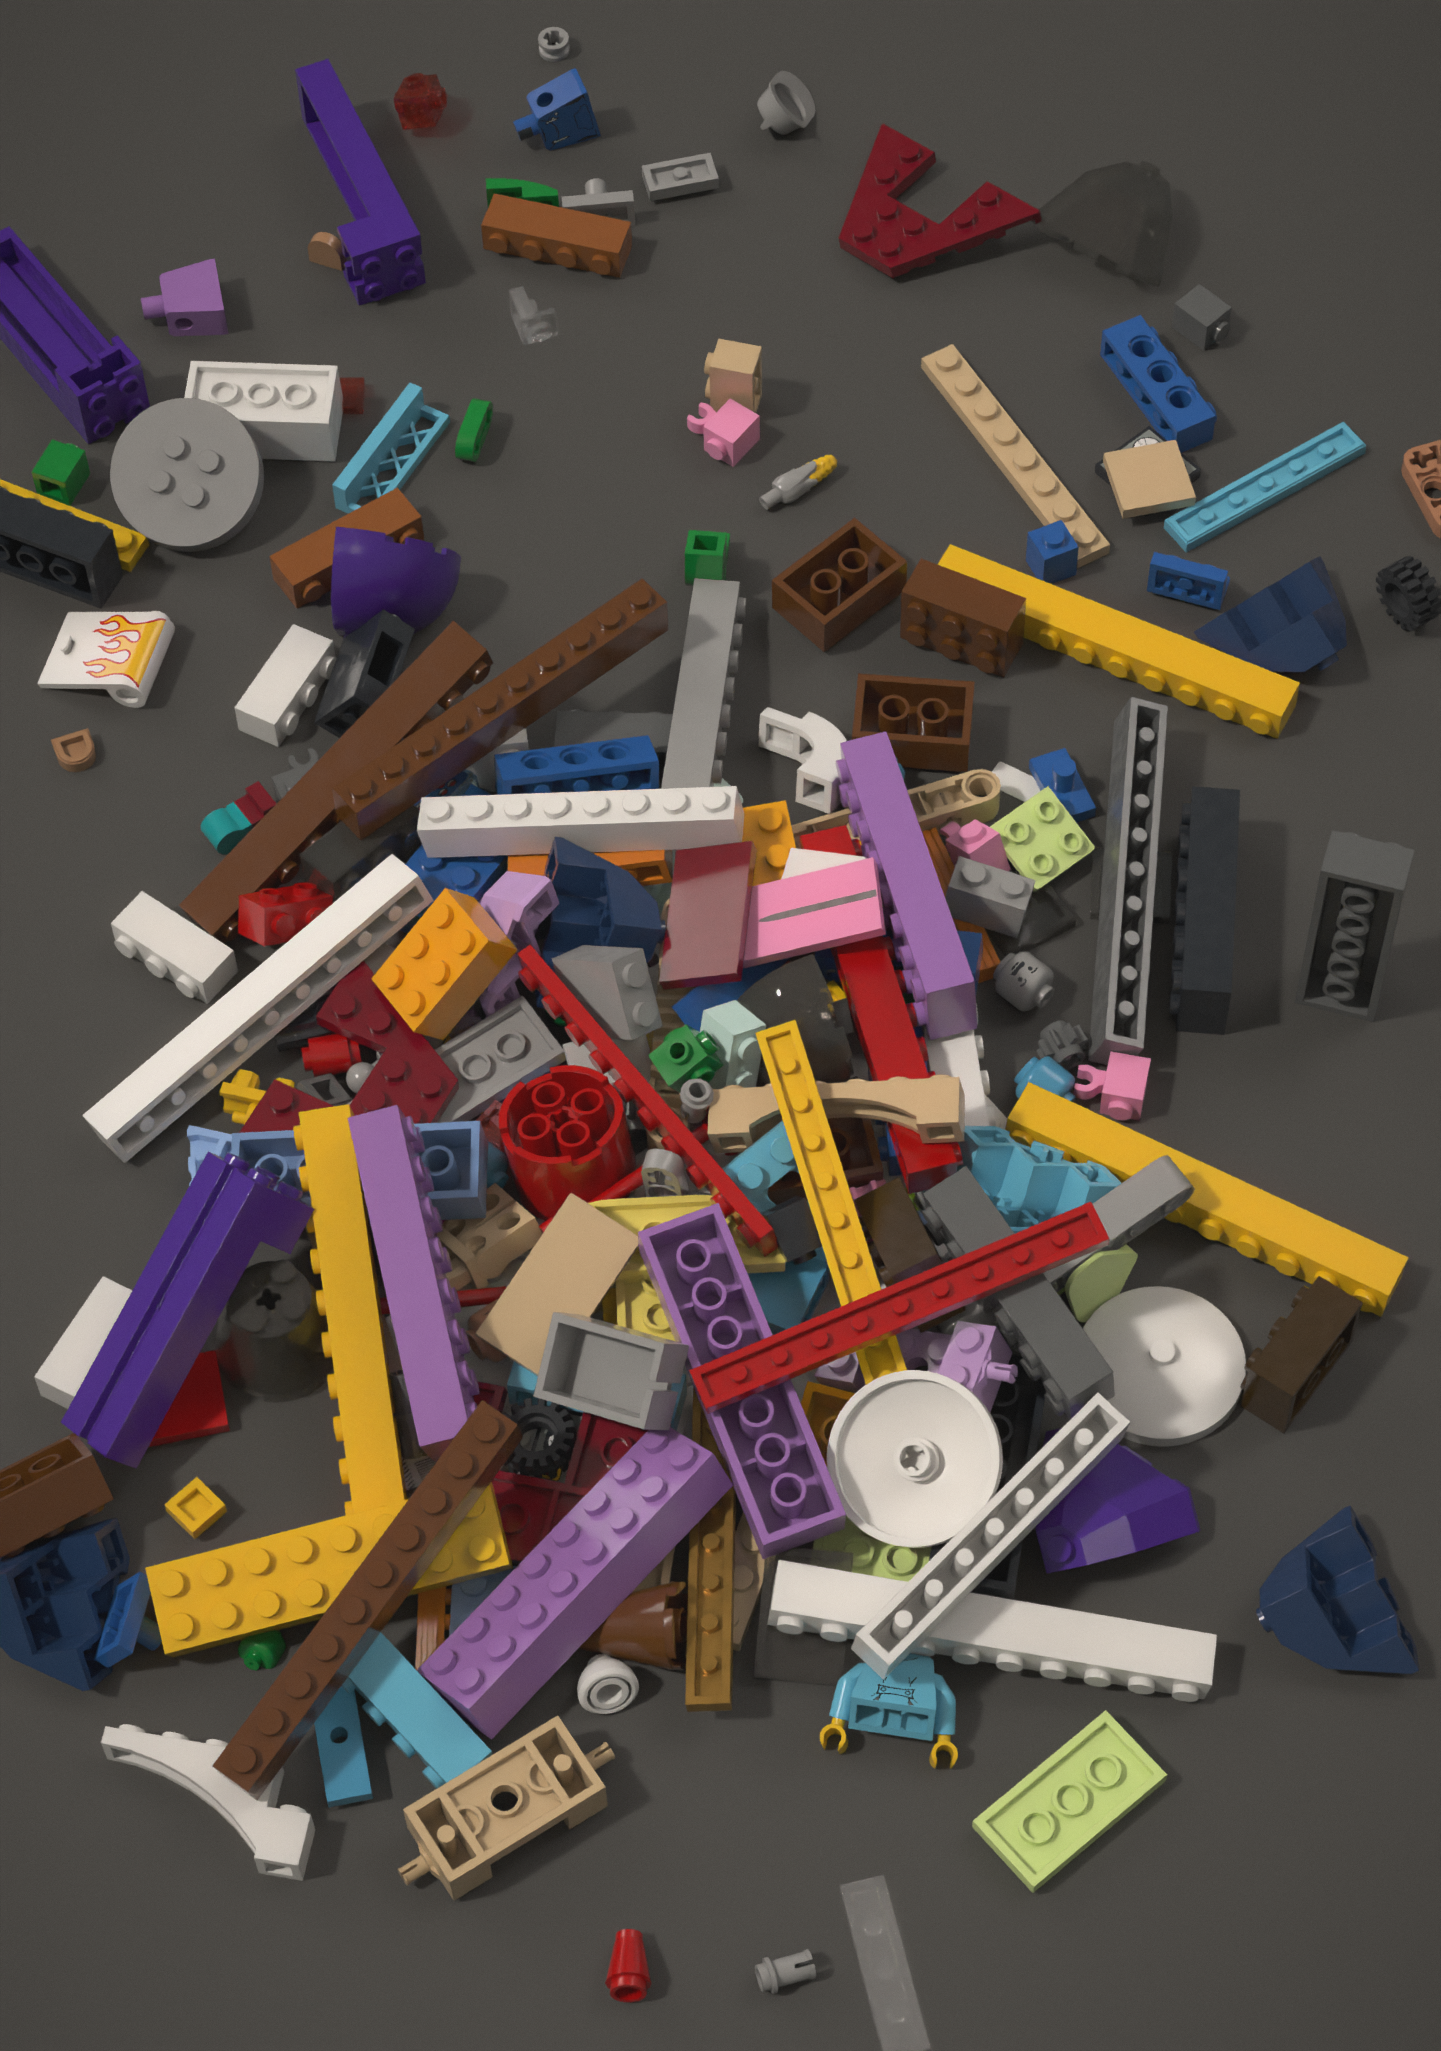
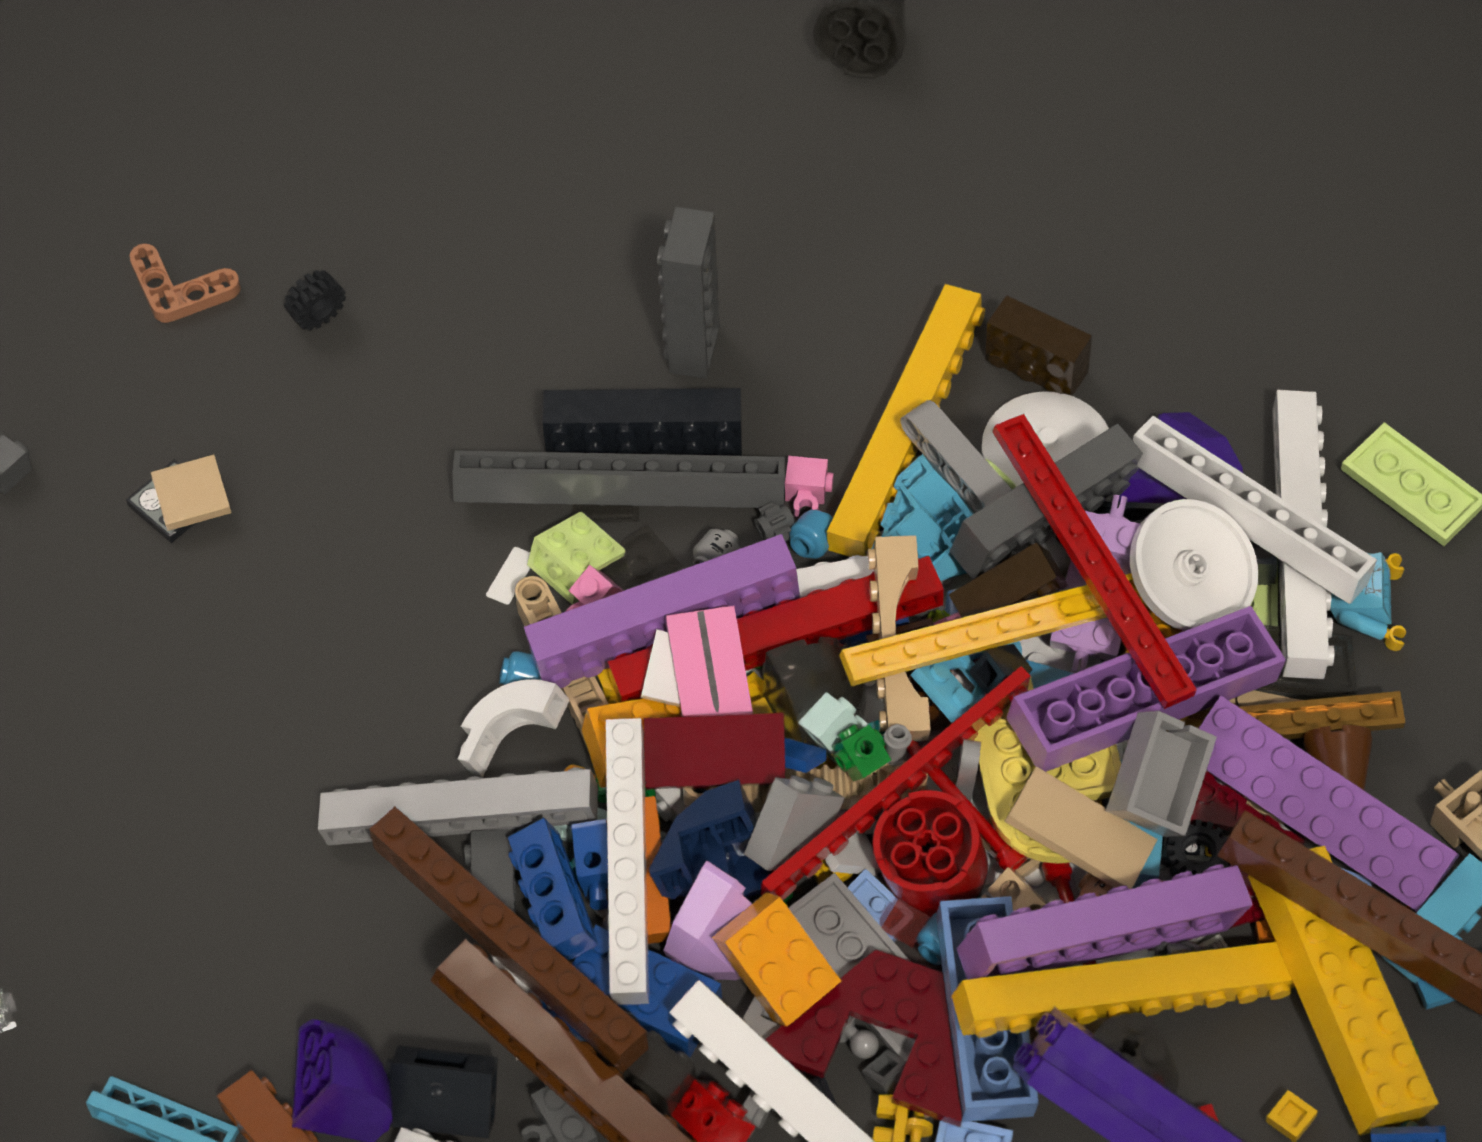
camera: 95 degrees left, 0 degrees up
(330, 1055) = (845, 1074): red brick -> none
(474, 430) = (132, 1048): green beam -> none
(606, 1685) = (1386, 790): white brick -> none
(706, 555) = (291, 826): green brick -> none
(728, 431) = (134, 828): bright pink brick -> none
(734, 374) = (85, 818): tan brick -> none
(798, 481) = (191, 770): light grey piece -> none
(839, 584) = (317, 717): reddish brown brick -> none
(922, 717) = (464, 647): reddish brown brick -> none
(962, 618) = (355, 616): reddish brown brick -> none
(988, 896) = (648, 561): light grey brick -> none
(1012, 450) = (153, 604): tan plate -> none
(1052, 552) = (274, 560): blue brick -> none
(1060, 774) = (510, 544): blue tile -> none
(1140, 649) = (363, 516): yellow brick -> none
(1158, 383) = (73, 507): blue brick -> none
(1187, 580) = (299, 459): blue bracket -> none
(1264, 486) = (188, 414): medium azure tile -> none
(1285, 624) = (343, 390): dark blue brick -> none
(1333, 1606) = (1229, 326): dark blue brick -> none

